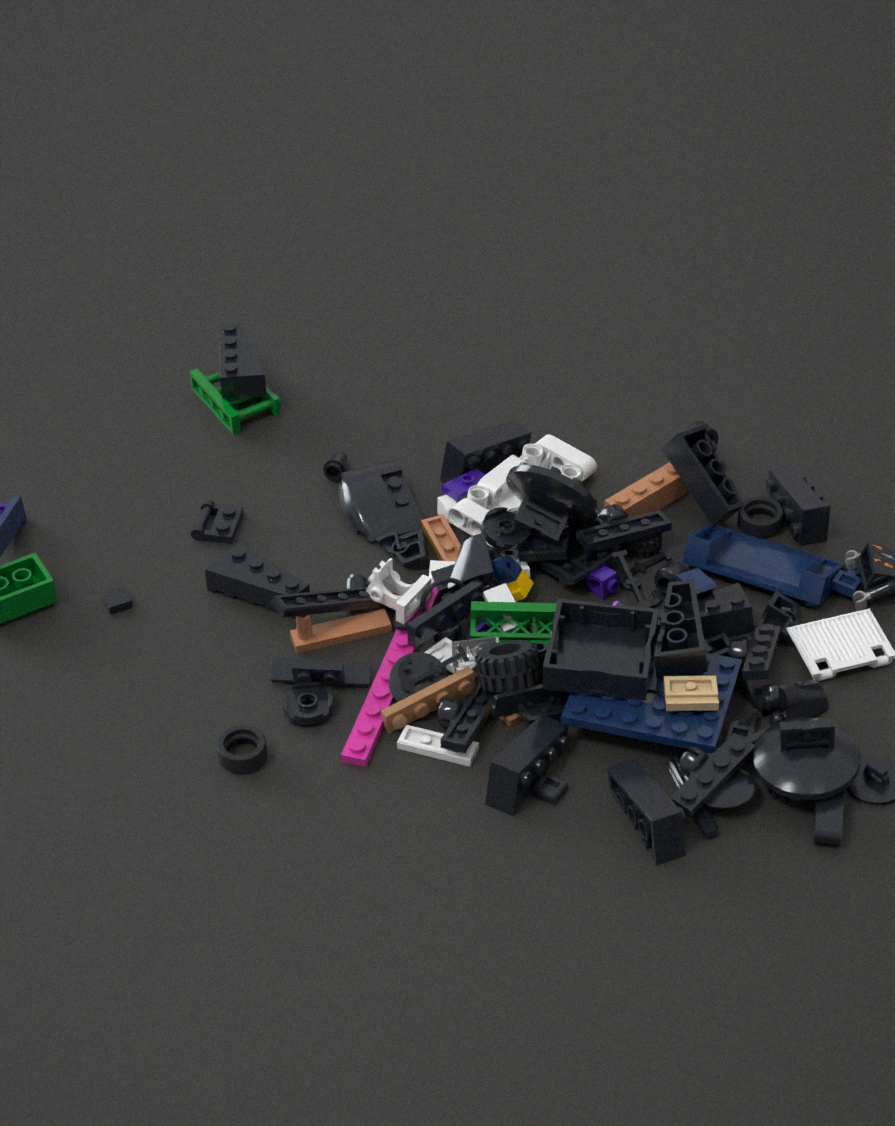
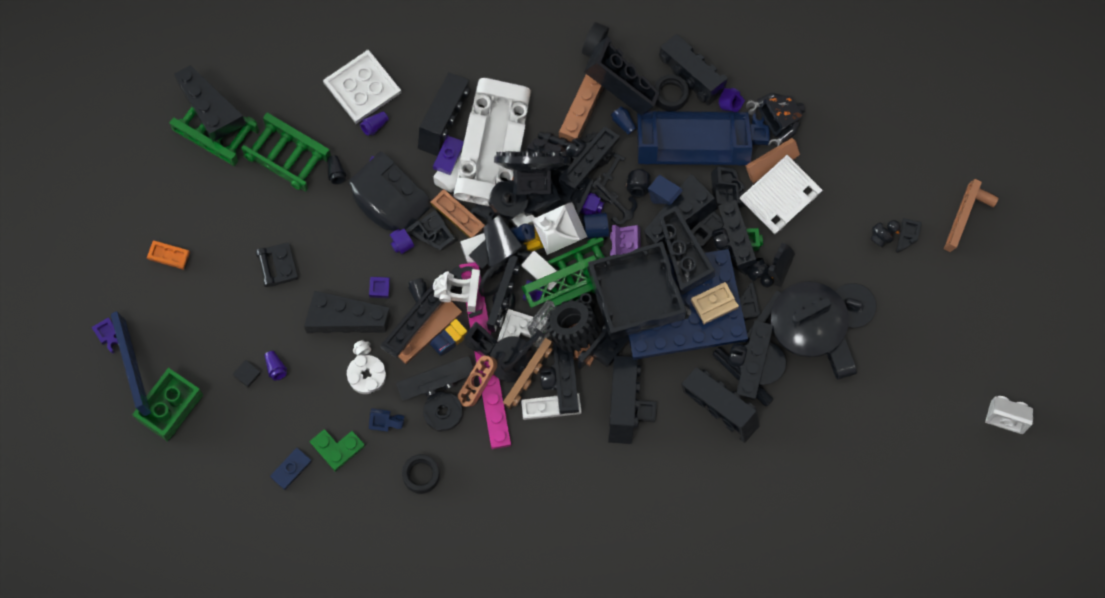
camera: 30 degrees left, 30 degrees up
(101, 696) = (290, 468): none -> dark blue plate
(110, 477) = (168, 255): none -> orange plate
(151, 603) = (275, 366): none -> dark purple cone
(164, 701) = (337, 453): none -> green plate
(233, 686) = (382, 420): none -> dark blue plate
(245, 633) = (370, 384): none -> white plate
(256, 623) = (362, 348): none -> white plate
(305, 420) = (287, 134): none -> green fence
(314, 573) = (379, 287): none -> dark purple plate
(361, 641) = (449, 338): none -> leg
(365, 542) = (401, 241): none -> dark purple plate
(376, 674) = (480, 366): none -> nougat beam
(389, 642) = (479, 340): none -> black slope
(404, 441) = (373, 123): none -> dark purple cone
(413, 410) = (362, 86): none -> white plate
(549, 575) = (559, 228): none -> white piece
(597, 593) = (596, 225): none -> dark blue piece
(688, 519) = (623, 120): none -> dark blue cone
(782, 670) = (755, 239): none -> green plate
(828, 542) = (731, 100): none -> dark purple plate
(834, 607) = (766, 162): none -> nougat tile

